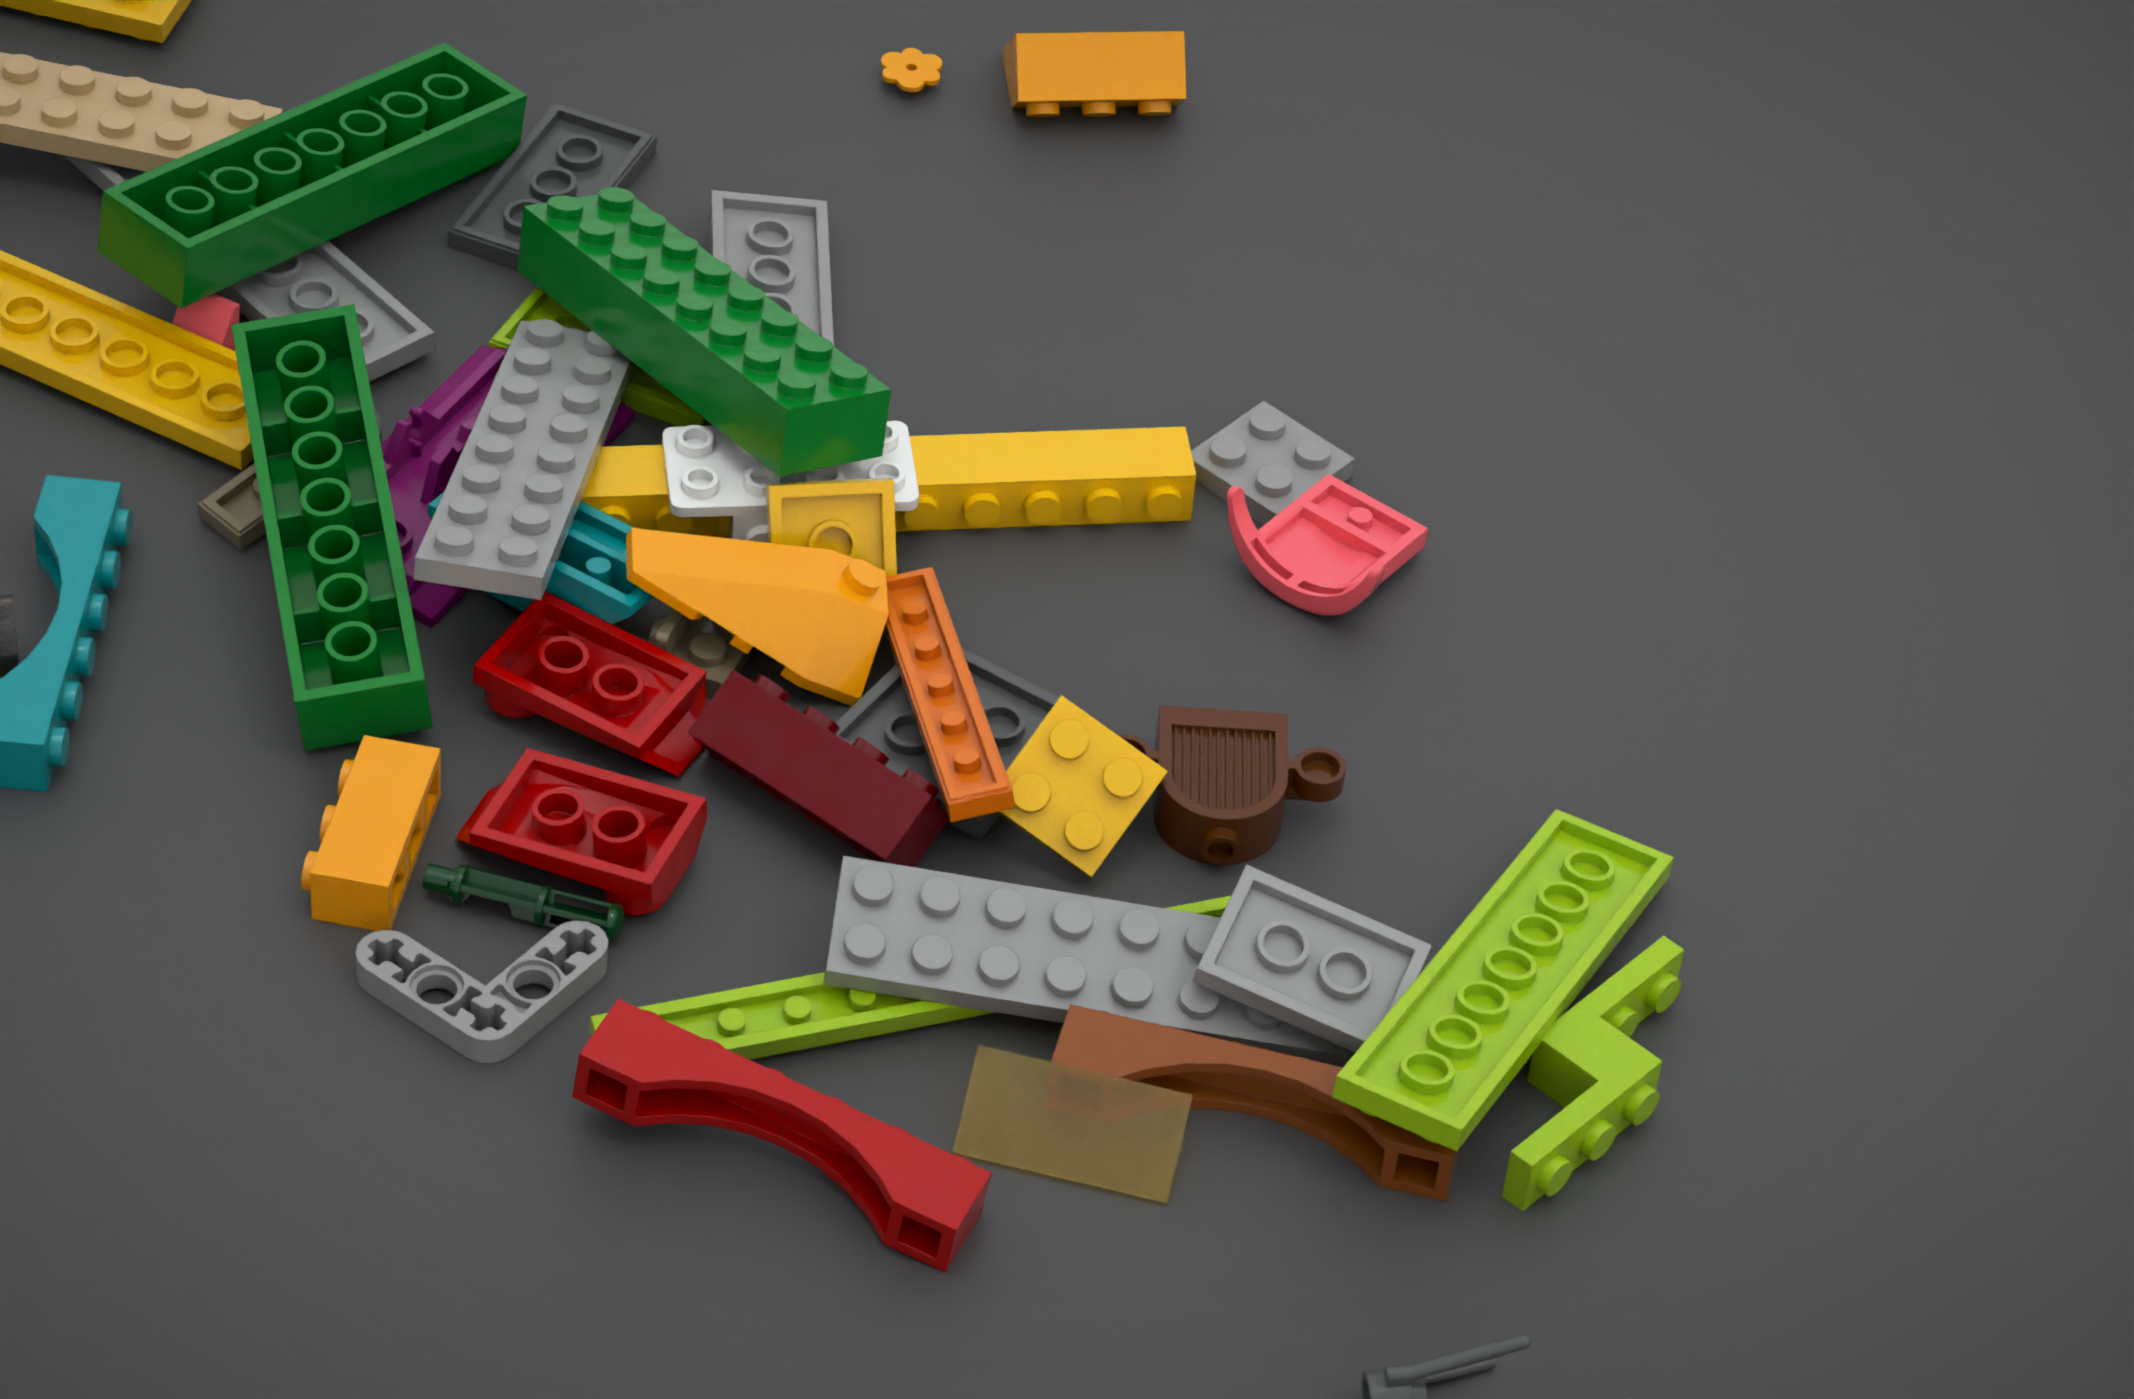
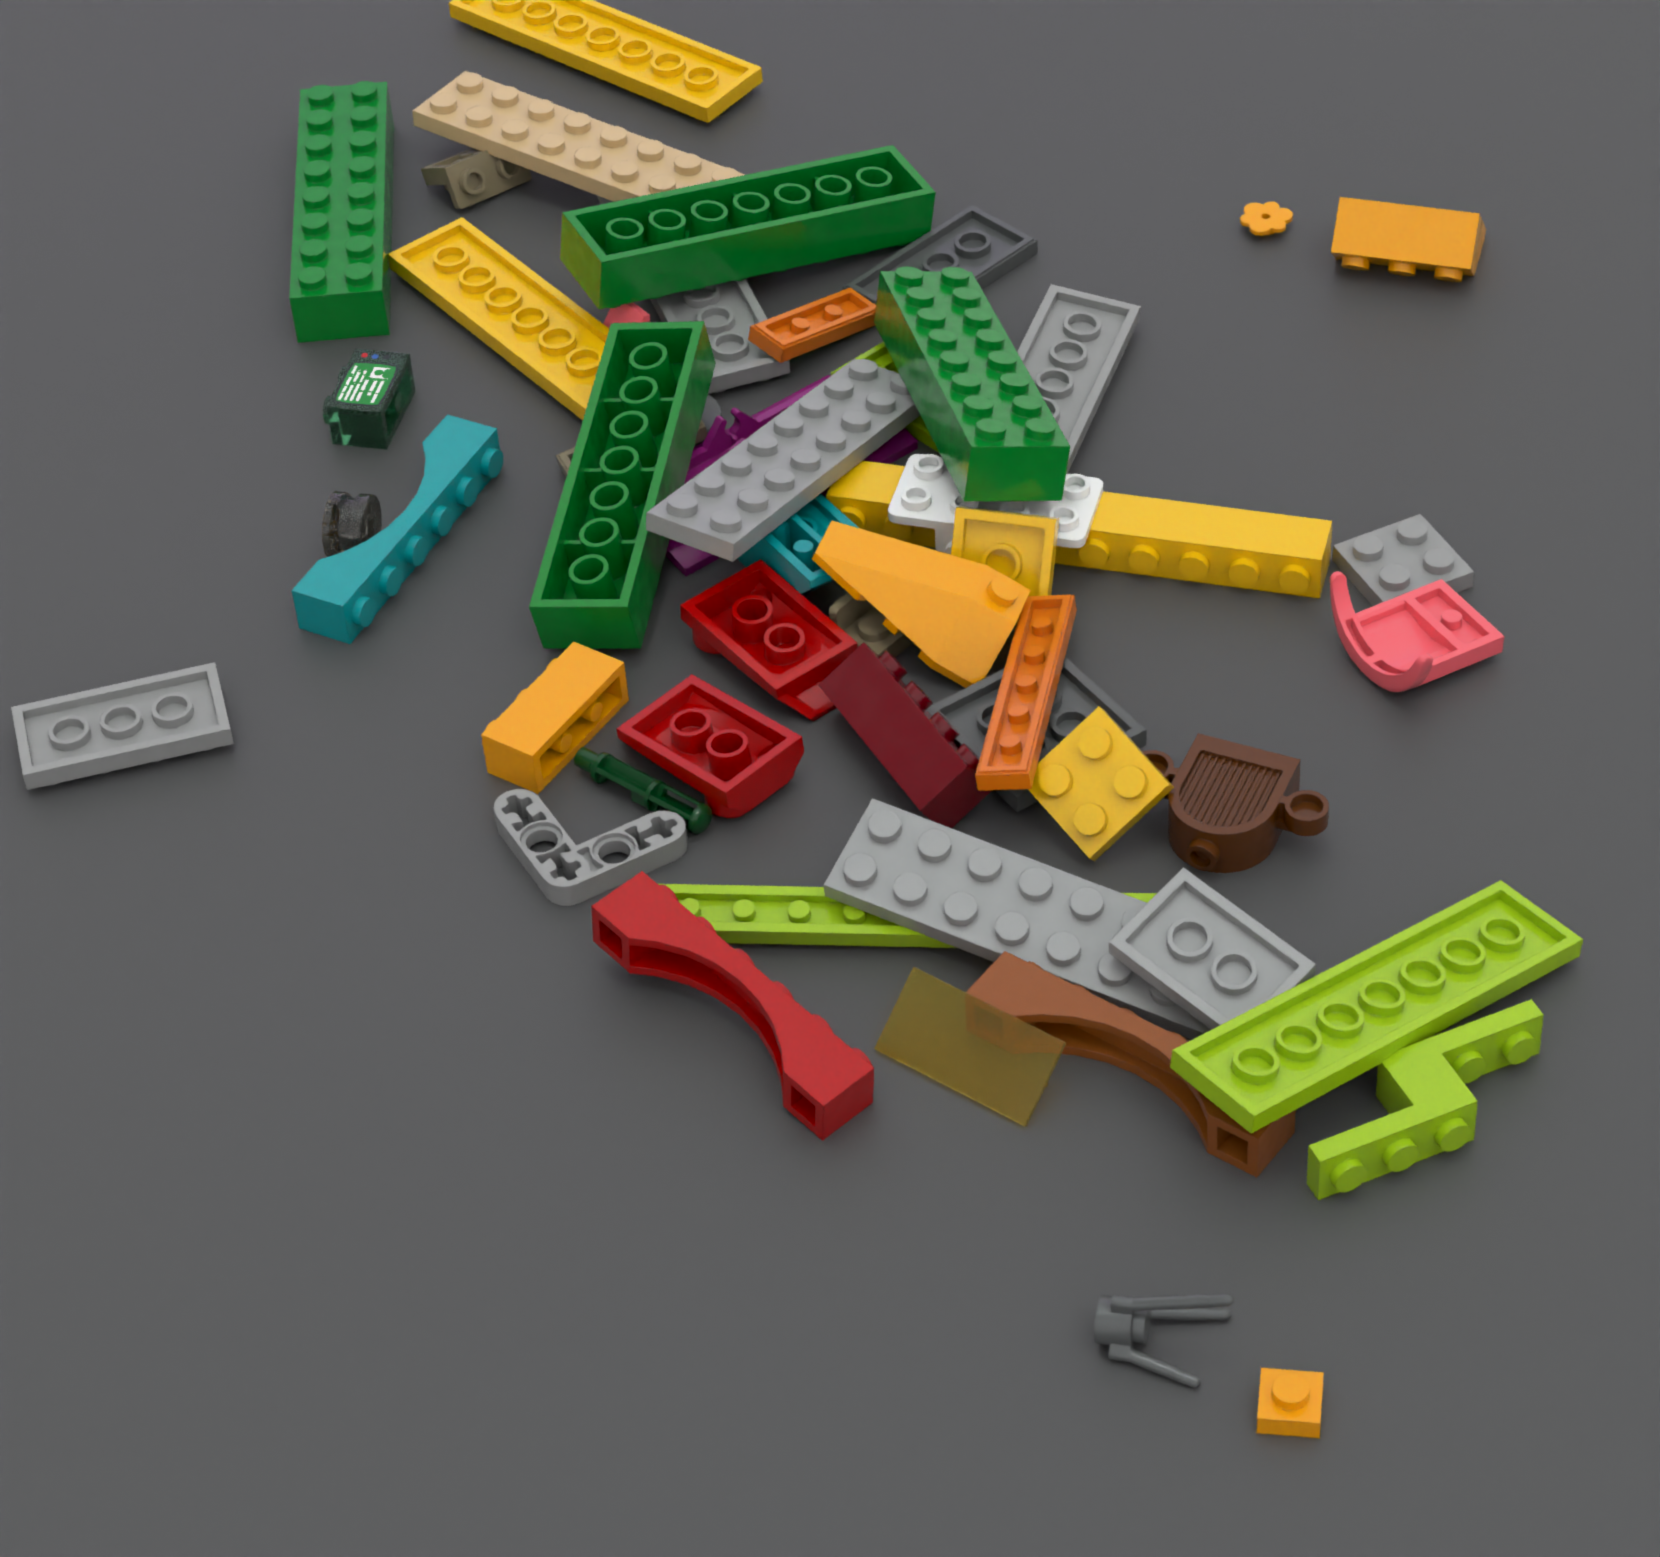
camera: 30 degrees right, 0 degrees up
(443, 285) = (813, 325): none -> orange tile

